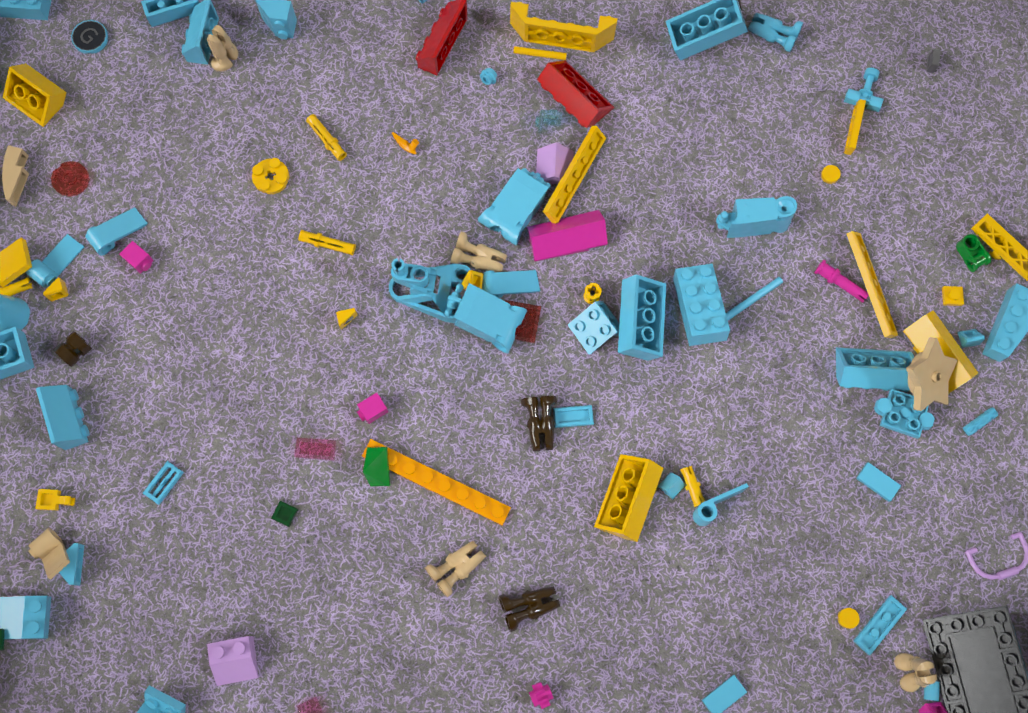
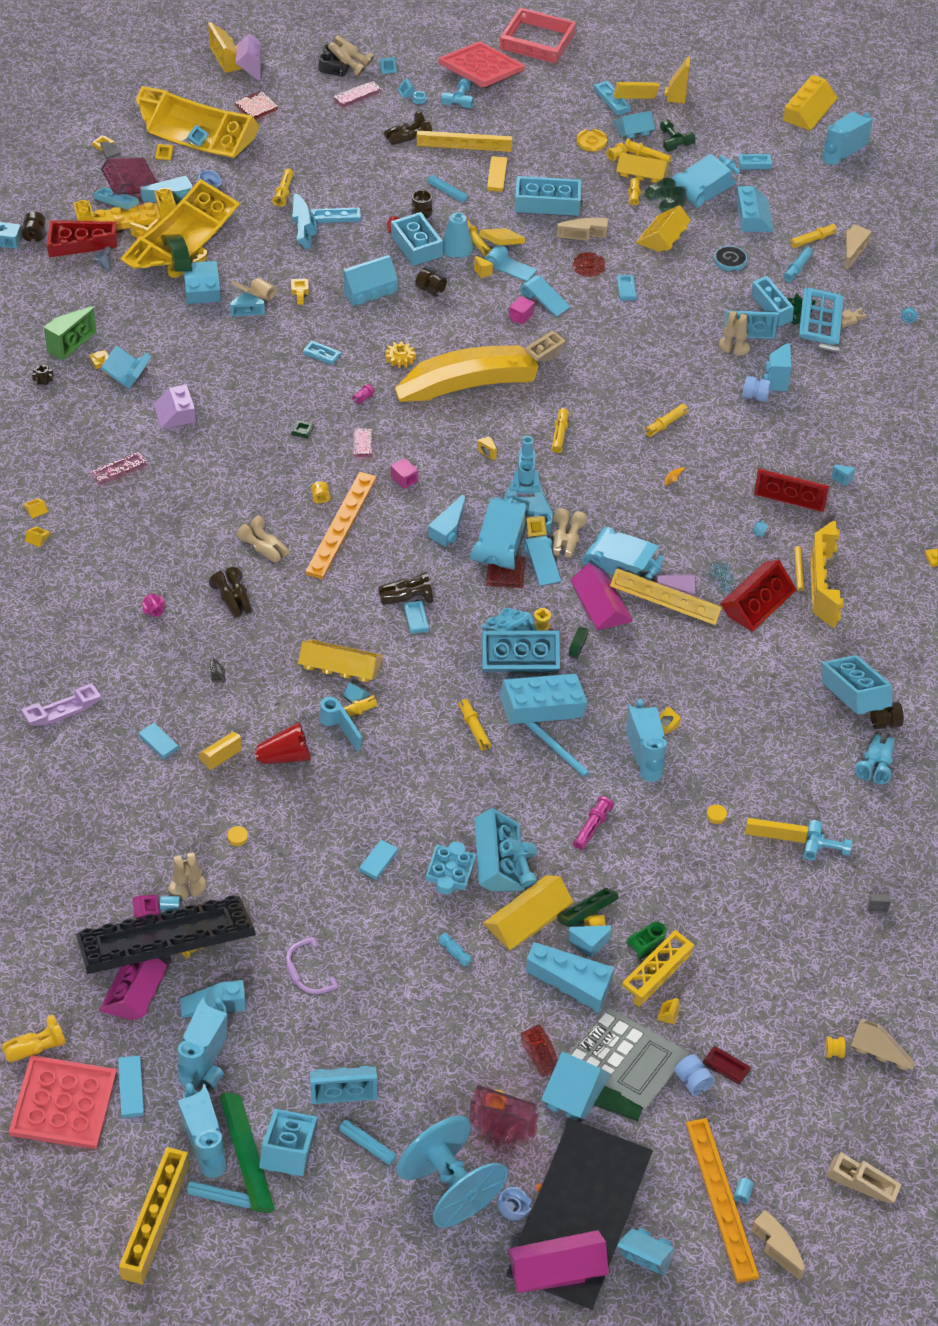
camera: 85 degrees right, 25 degrees down
(115, 146) = (626, 287): none -> medium azure tile
(182, 402) = (400, 354): none -> yellow gear
(210, 238) = (546, 347): none -> tan slope
(222, 326) = (465, 370): none -> yellow slope
(240, 441) = (364, 393): none -> dark pink pin
(272, 166) = (620, 380): yellow plate -> none
(297, 44) = (756, 388): none -> light blue wheel
(377, 466) = (349, 477): green slope -> none
(390, 500) = (320, 492): none -> yellow wheel
(453, 370) = (446, 525): none -> medium azure slope
(622, 263) = (578, 642): none -> dark green beam
(636, 628) = (217, 671): none -> clear smoke slope
(712, 376) = (471, 718): none -> yellow pin
(722, 198) = (670, 720): none -> yellow slope
(743, 630) = (221, 750): none -> yellow brick
(748, 563) = (284, 747): none -> red cone
(872, 284) = (593, 848): yellow tile -> none
(880, 625) = (232, 862): medium azure tile -> none
(887, 350) = (521, 853): none -> medium azure bar
(930, 375) = (504, 870): tan plate -> none
(936, 298) = (587, 907): none -> dark green tile
(970, 338) = (548, 938): medium azure slope -> none
(974, 299) = (589, 938): none -> medium azure slope

